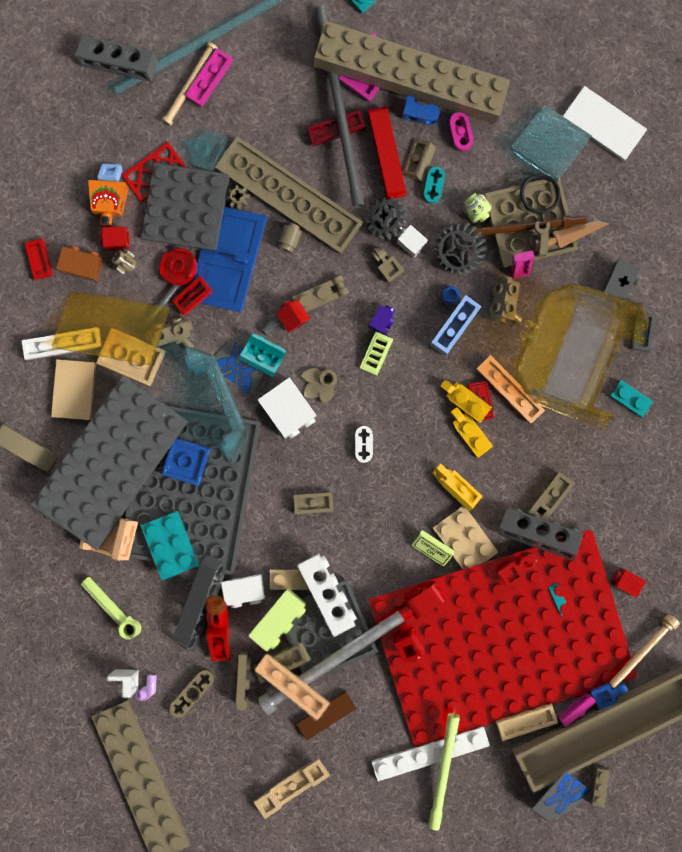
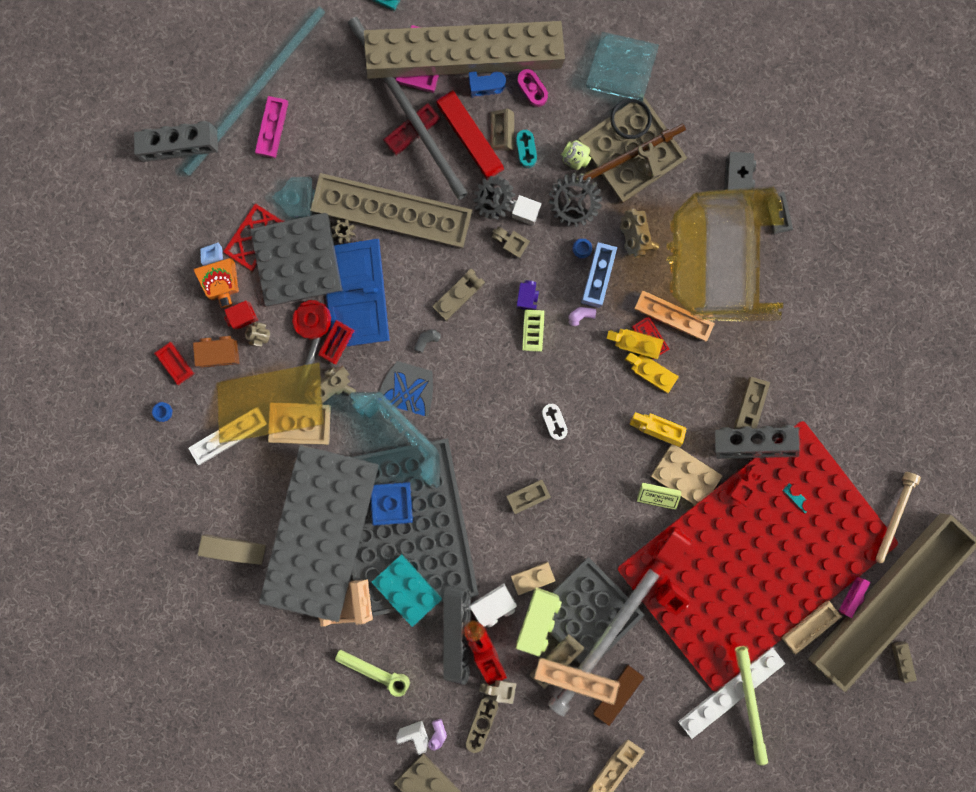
camera: 20 degrees left, 0 degrees up
(11, 299) = (162, 412): none -> blue plate
(73, 389) = (256, 476): tan tile -> none
(181, 97) = (262, 98): tan bar -> none
(220, 671) = (502, 691): none -> plate
(243, 681) = (527, 693): dark tan plate -> none
(262, 354) = (425, 373): teal bracket -> none
(288, 408) = (469, 415): white brick -> none
(289, 237) = (407, 251): dark tan brick -> none
(292, 315) = (439, 324): red brick -> none
(317, 386) = (487, 382): dark tan plate -> none
(336, 623) = (595, 603): white brick -> none
(424, 354) = (579, 314): none -> lavender arm
(522, 264) = (640, 192): dark pink plate -> none
(561, 797) = (873, 686): sticker -> none
(569, 235) = (674, 147): medium nougat bar -> none
(605, 123) = (667, 28): white tile -> none
(606, 695) = (877, 572): blue plate -> none
(628, 582) = (856, 457): red brick -> none
(631, 398) = (791, 281): teal plate -> none

